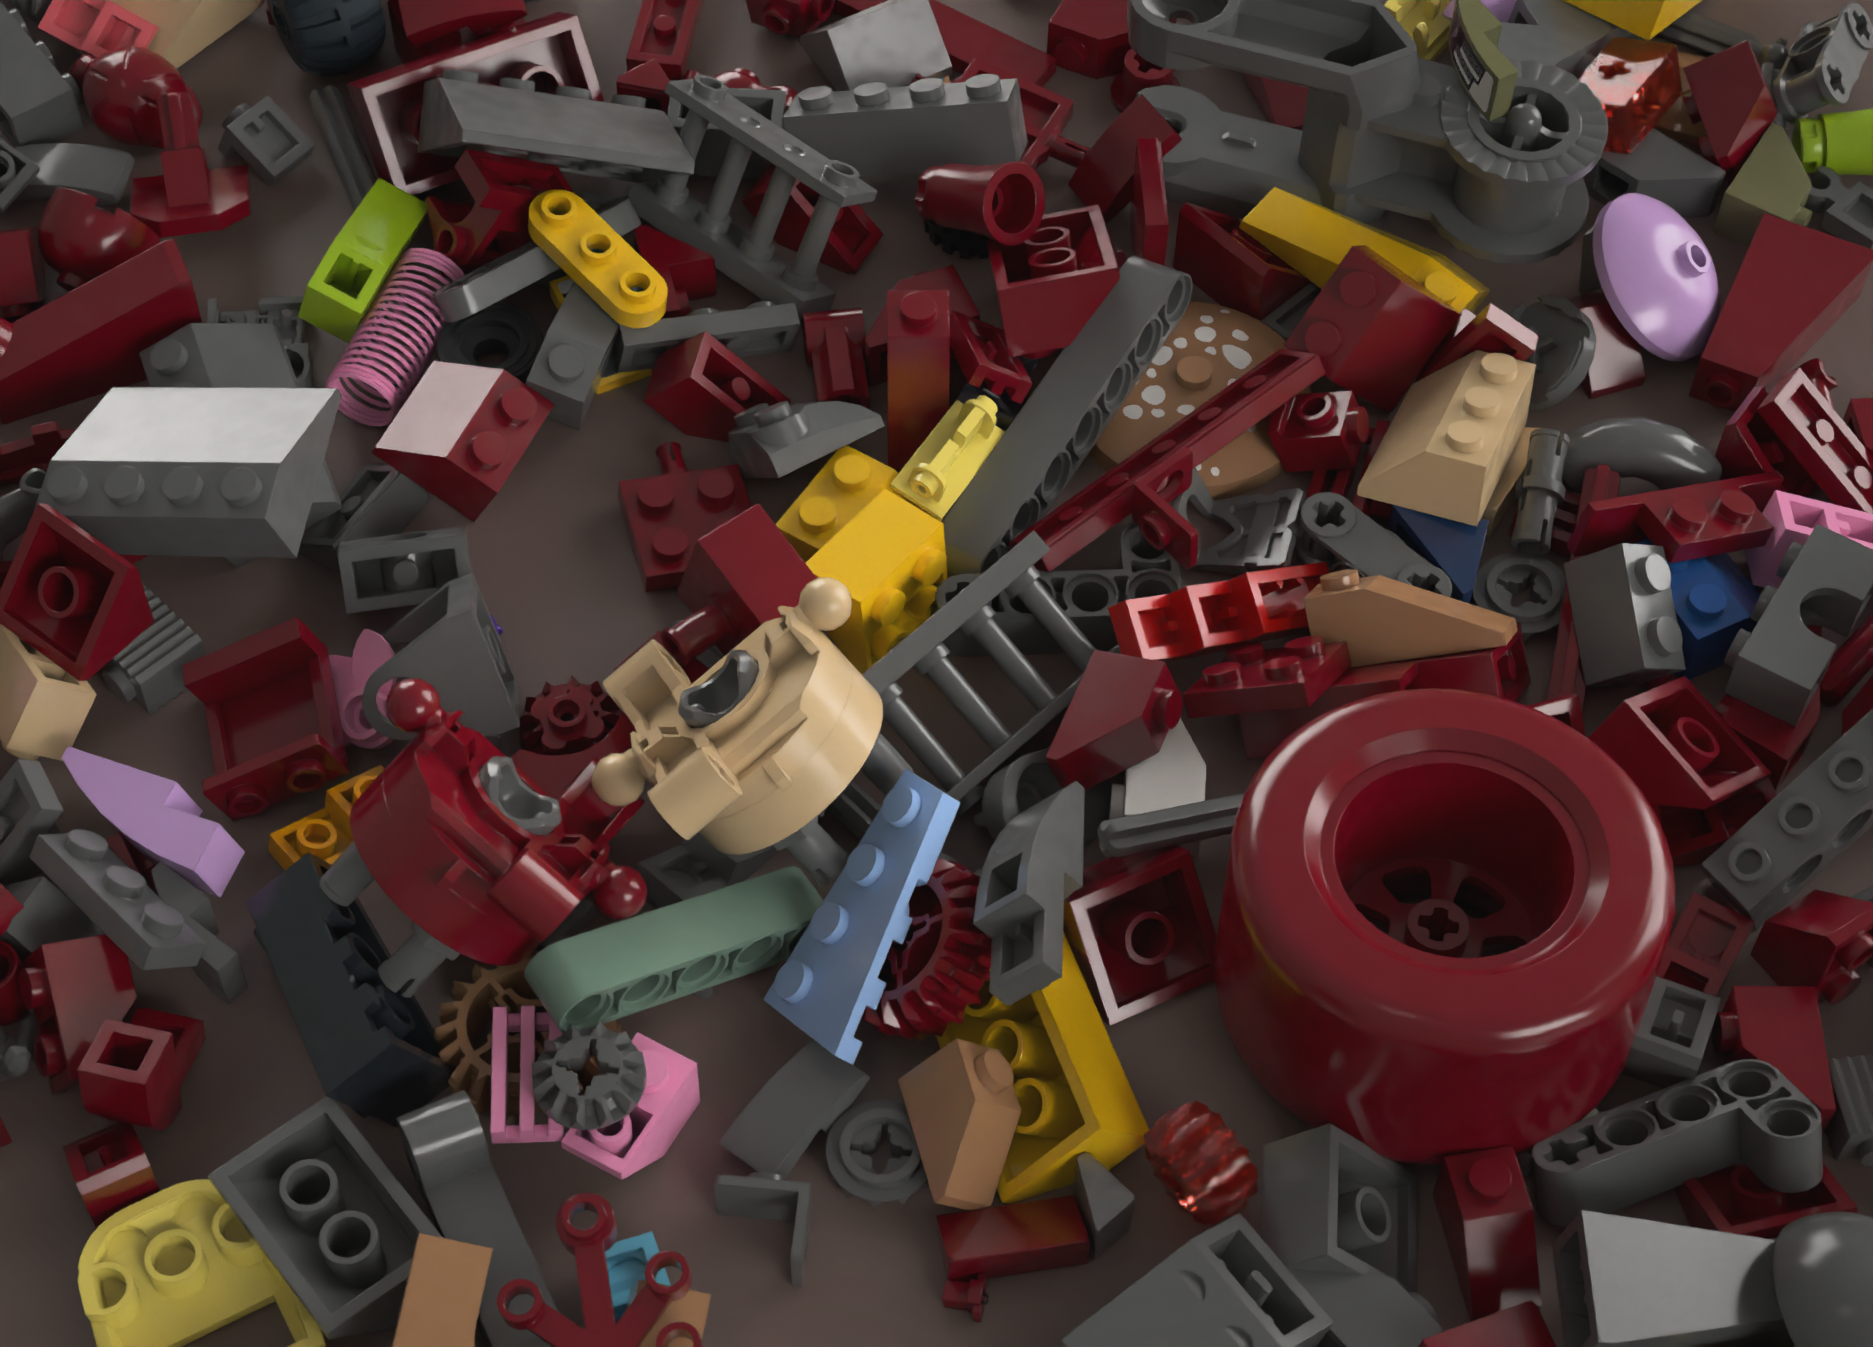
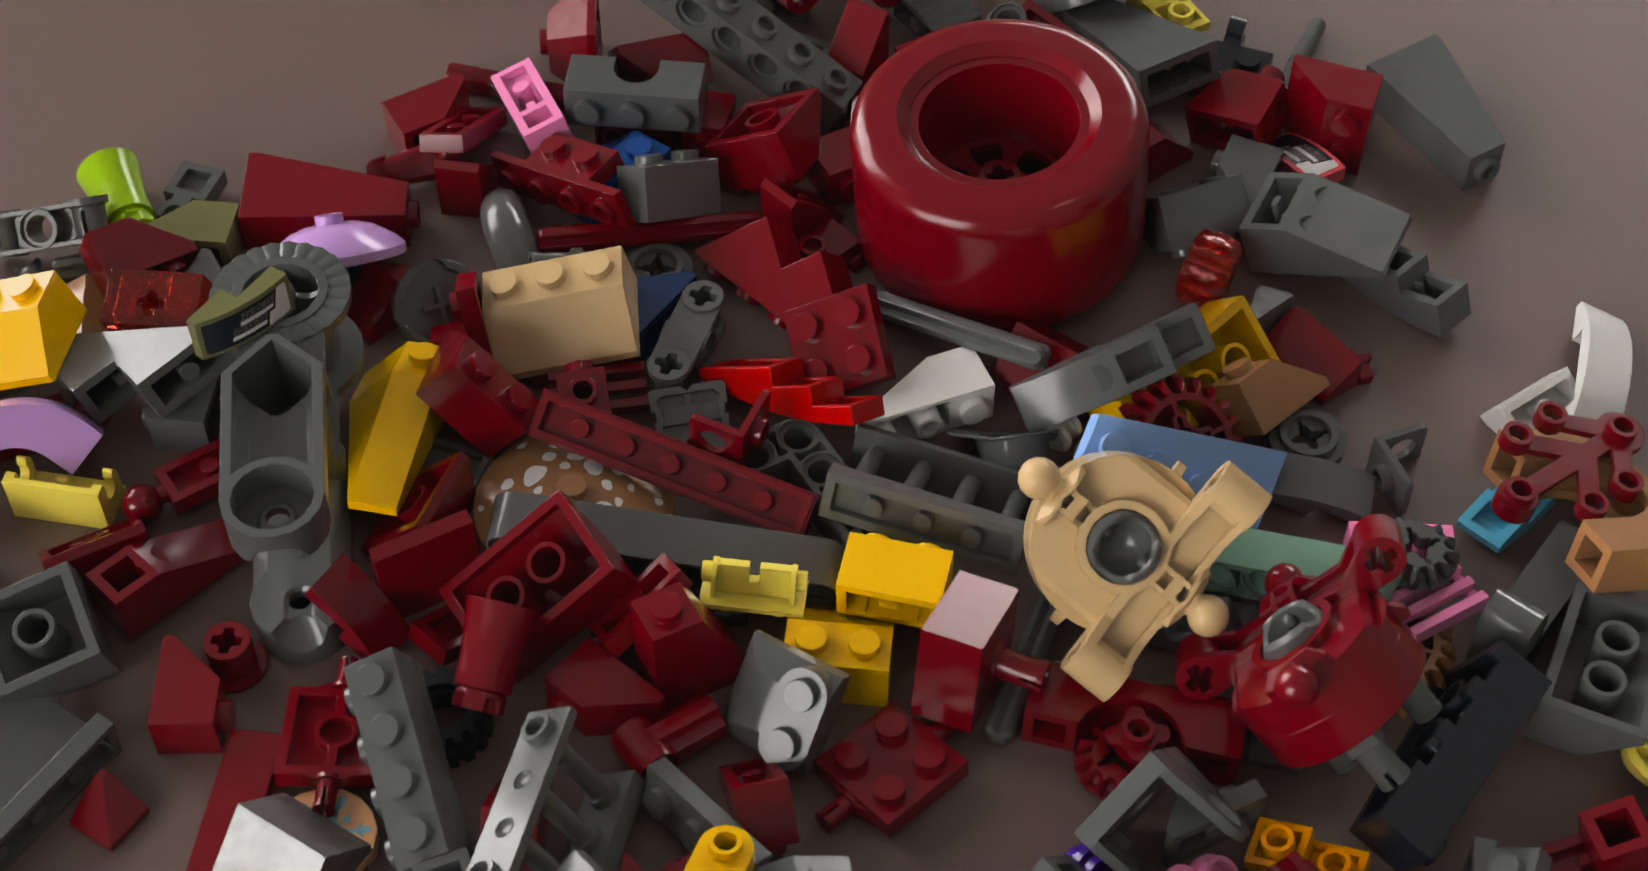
camera: 115 degrees left, 5 degrees down
(1114, 718) = (938, 397): dark red slope -> none
(1397, 620) = (747, 291): medium nougat slope -> none

